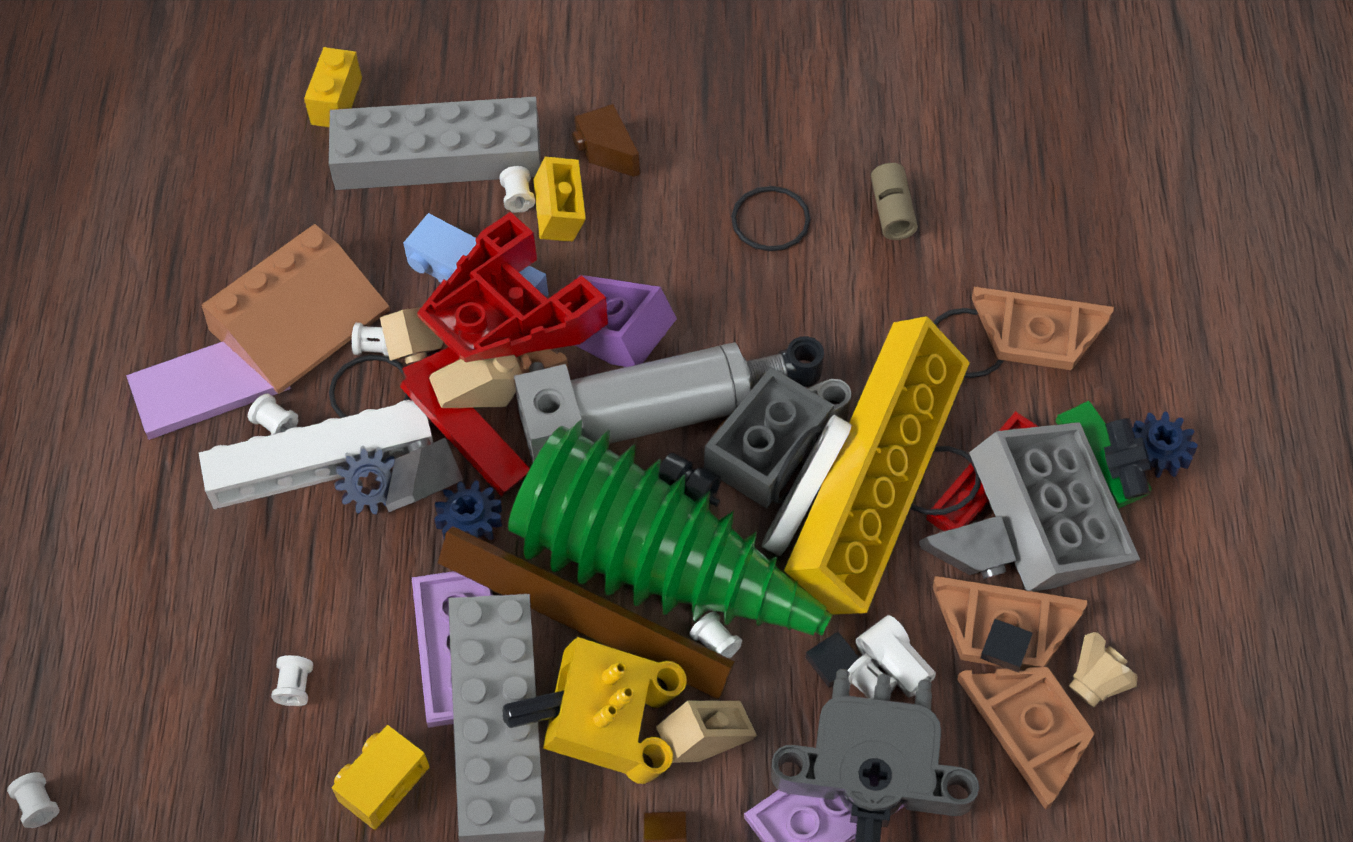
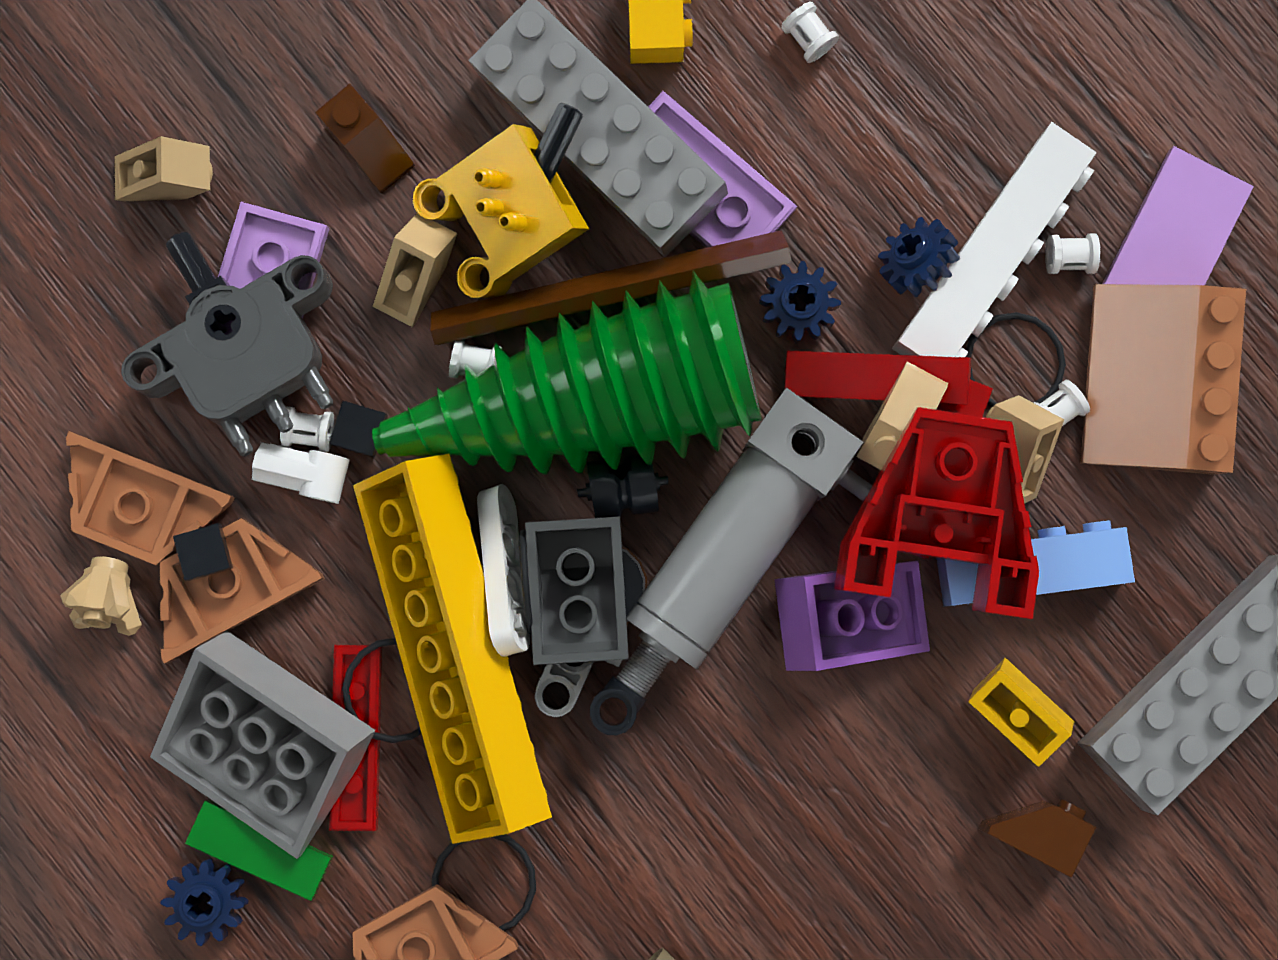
camera: 135 degrees right, 25 degrees up
(422, 473) = (869, 291): flat silver slope -> none
(518, 195) = (1080, 697): white bush -> none
(766, 189) = (749, 884): black piece -> none
(973, 547) = (307, 634): flat silver slope -> none
(1127, 458) = (218, 846): black axle -> none

